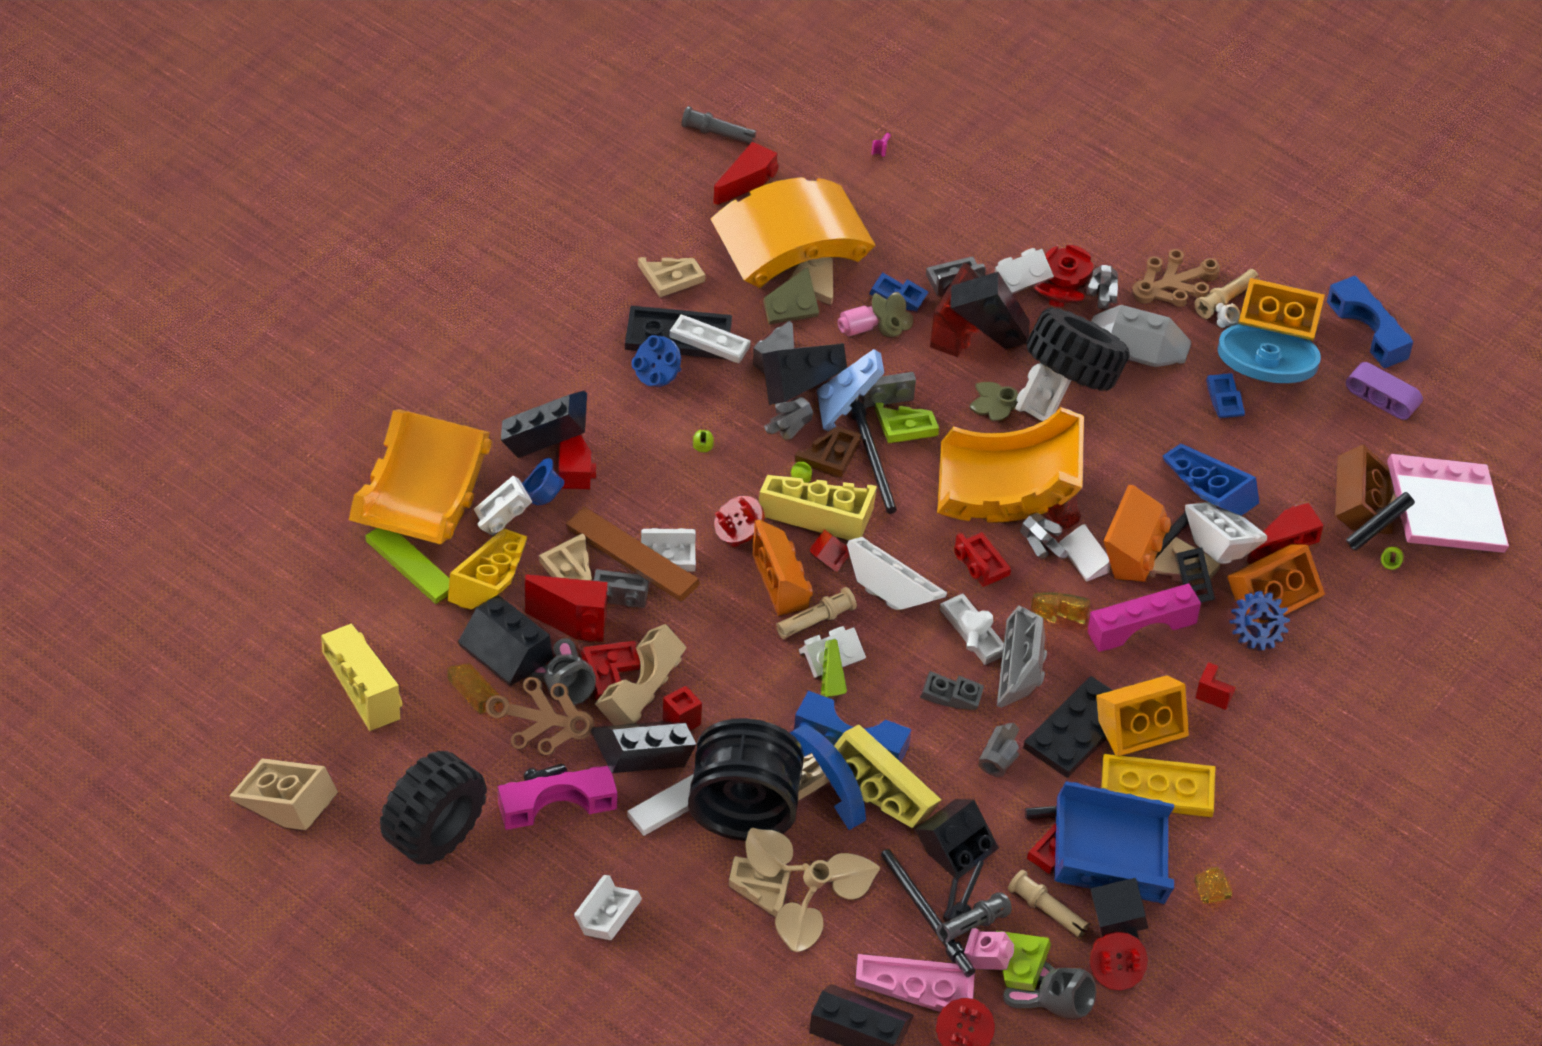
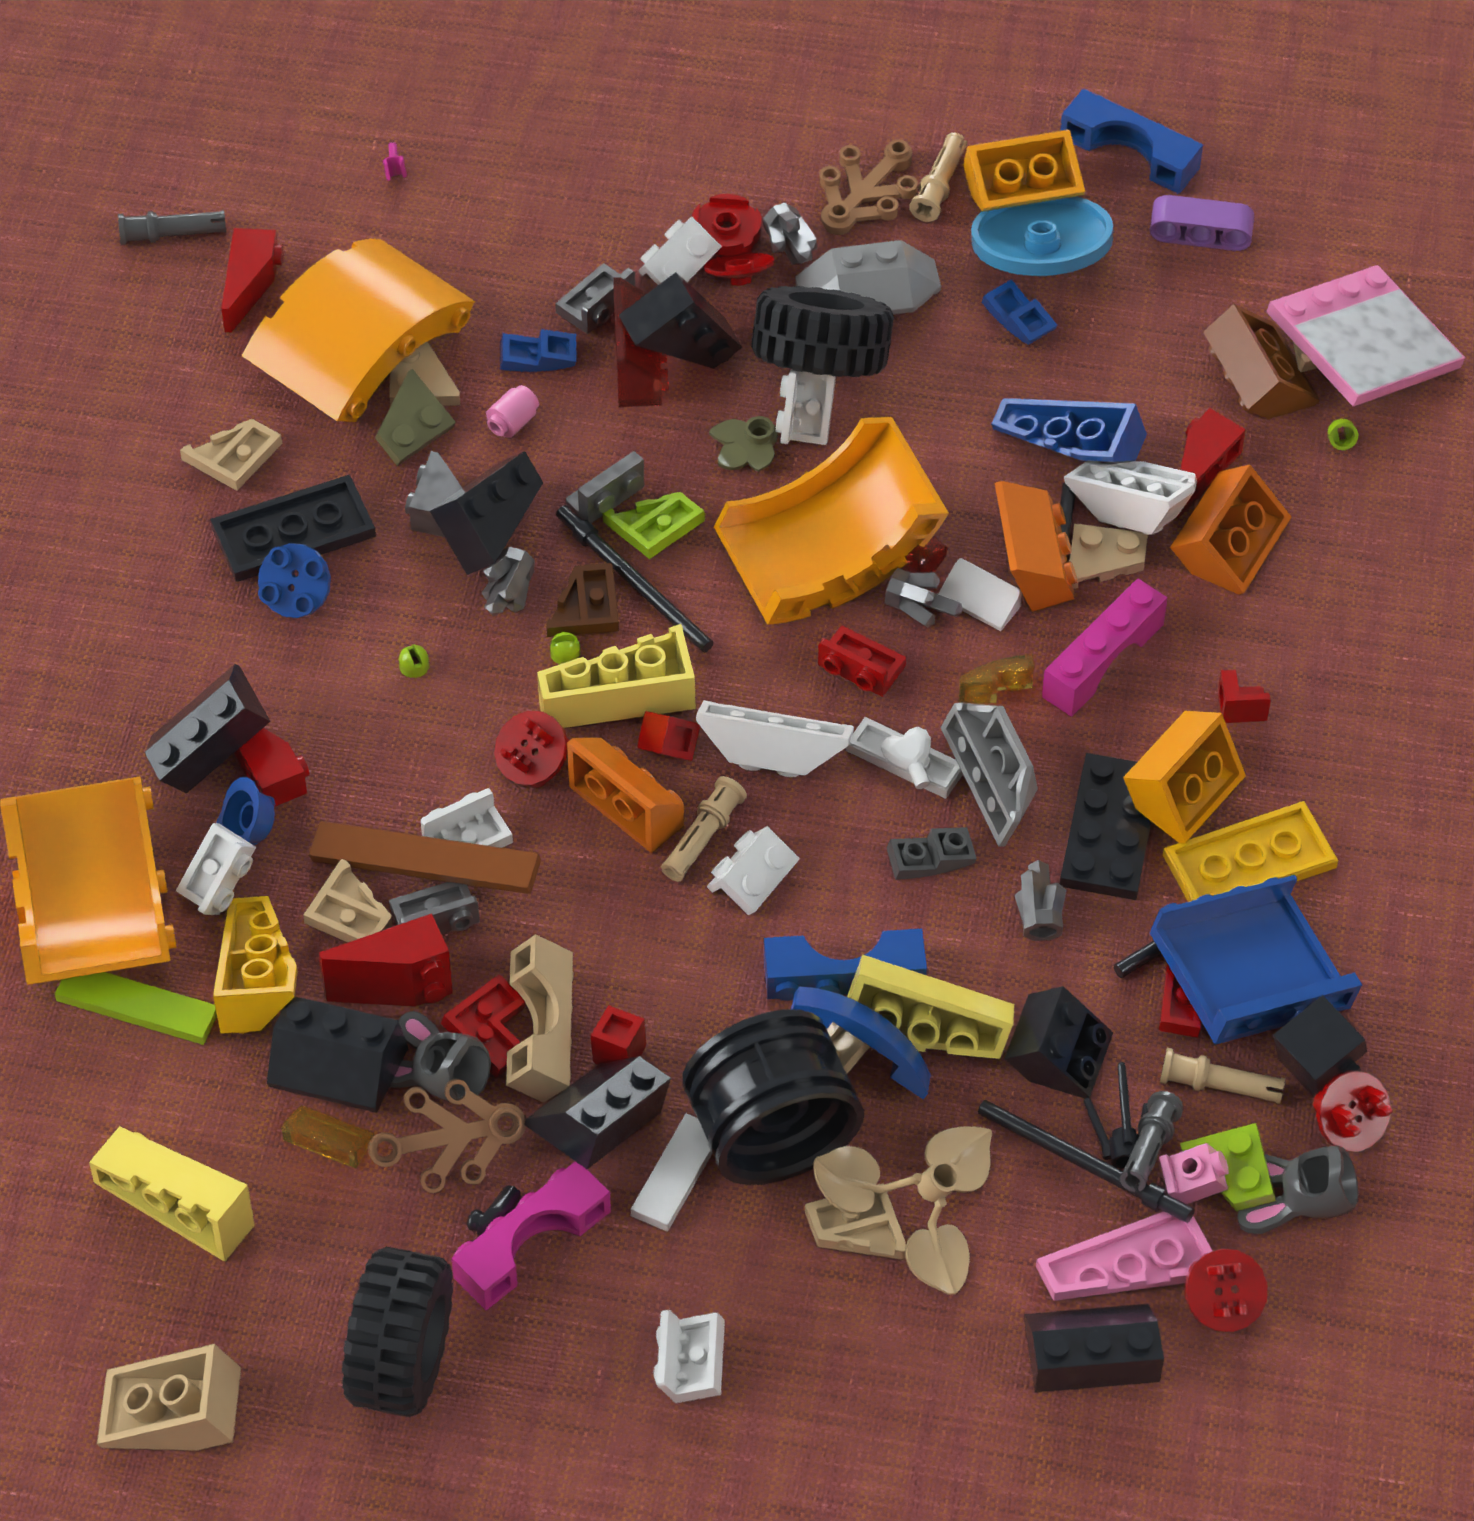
camera: 25 degrees left, 5 degrees up
(710, 338) = (342, 519): white tile -> none
(833, 676) = (778, 900): lime slope -> none
(844, 388) = (557, 513): light blue wing -> none
(892, 314) = (550, 384): olive plate -> none
(1198, 552) = (1133, 545): black slope -> none
(1213, 885) = (1395, 957): clear yellow tile -> none
(1227, 315) = (959, 205): white plate -> none
(1259, 631) = (1232, 575): blue gear -> none
(1380, 521) = (1307, 393): black axle -> none

